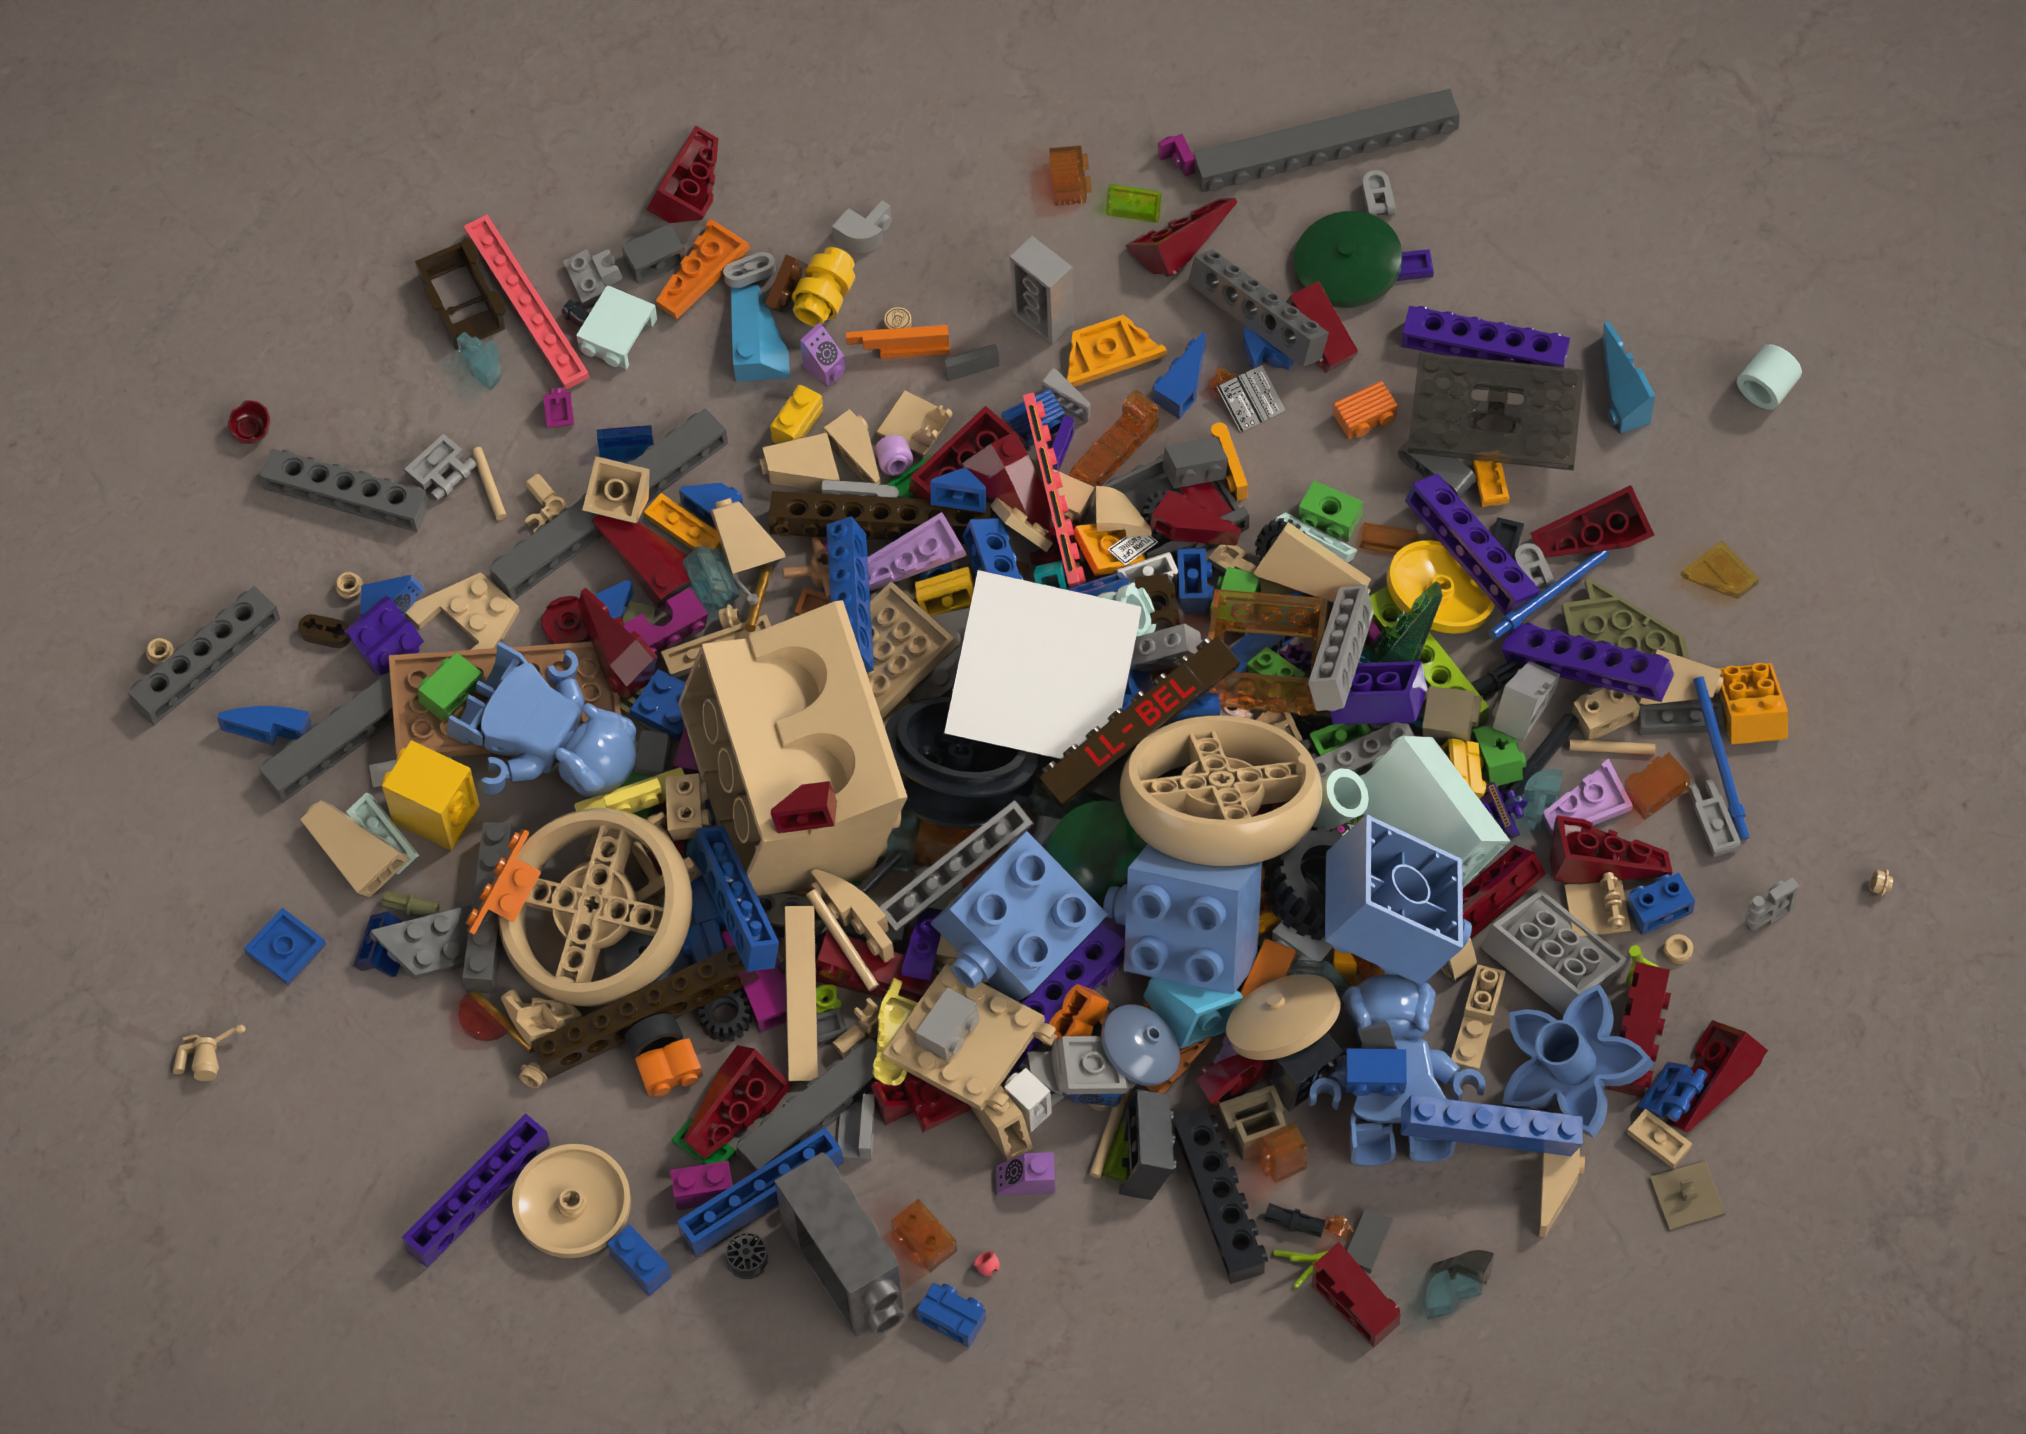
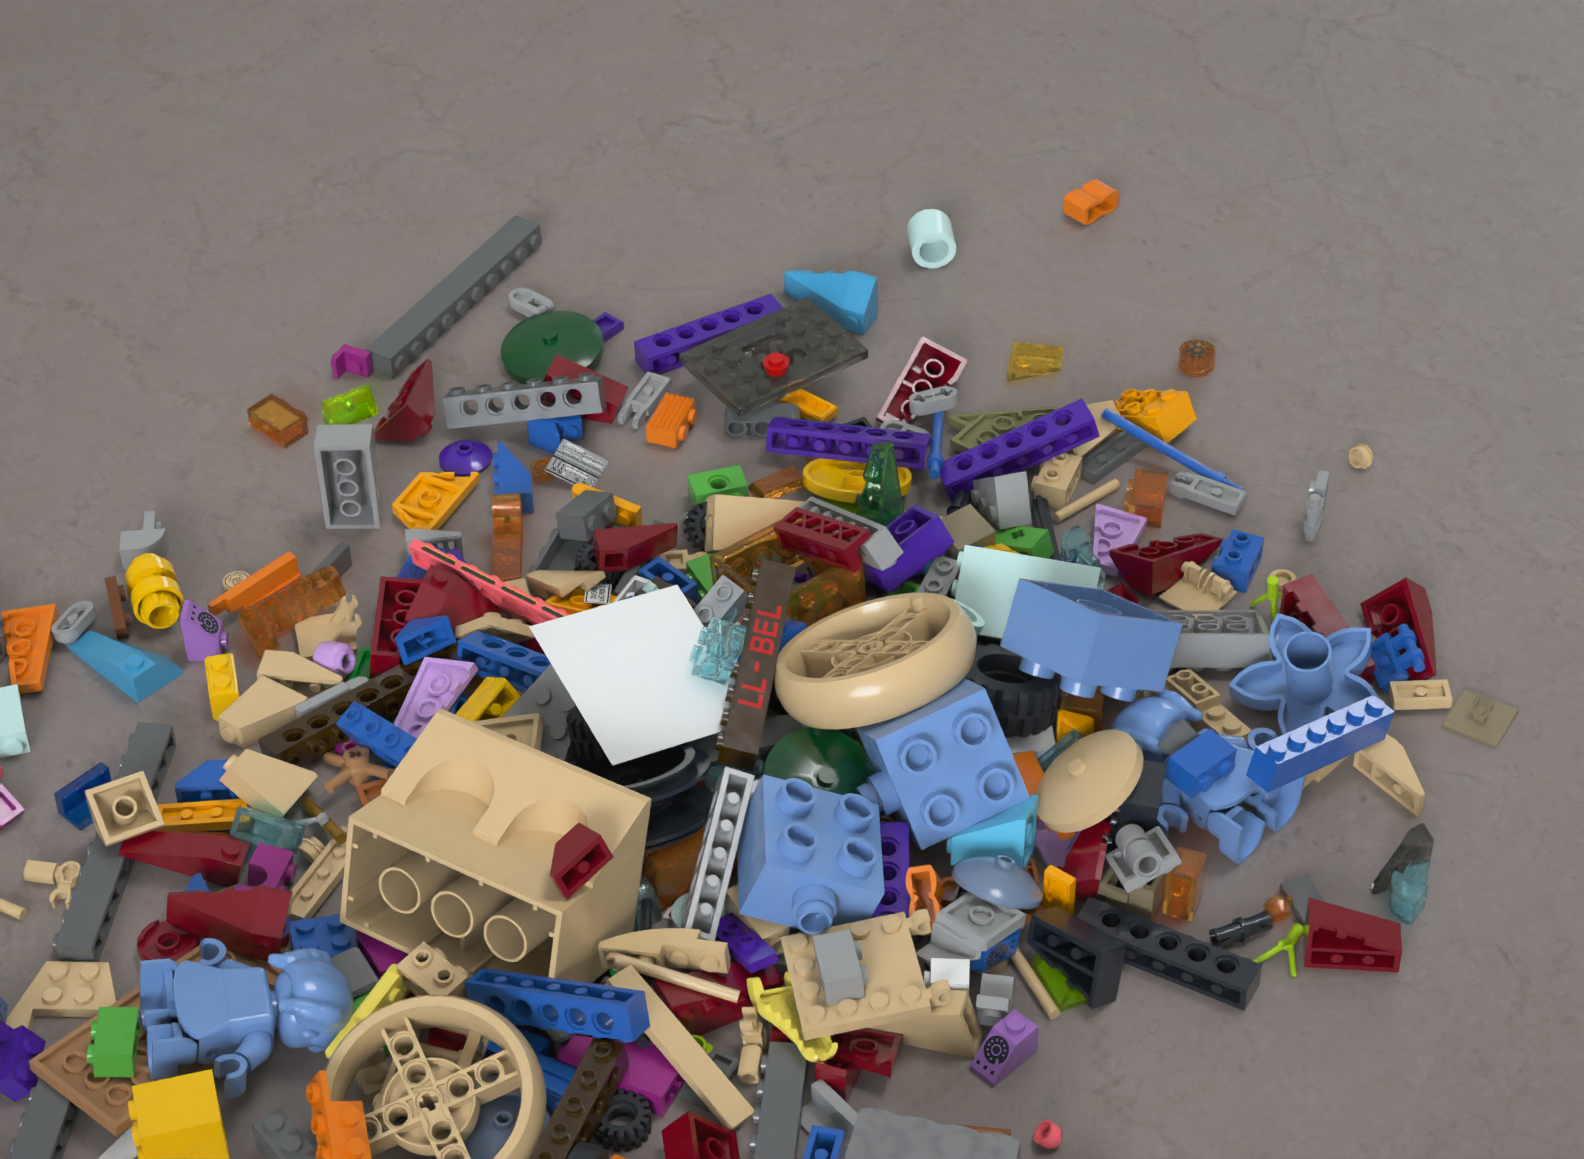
camera: 45 degrees left, 20 degrees down
(899, 378) = (288, 607): none -> clear orange beam
(1059, 1132) = (994, 998): none -> light grey brick
(1105, 693) = (717, 650): none -> clear light blue brick
(1175, 330) = (465, 457): none -> dark purple dish
(1186, 1087) = (1058, 889): none -> light orange plate
(1256, 1110) = (1141, 856): none -> light grey plate
(1295, 640) = (815, 541): none -> dark red fence
(1369, 369) = (644, 399): none -> light grey hinge
(1479, 425) = (776, 364): none -> red plate
(1585, 554) = (933, 400): none -> light grey beam
(1861, 676) = (1197, 360): none -> clear orange wheel
(1960, 436) = (1090, 201): none -> orange brick

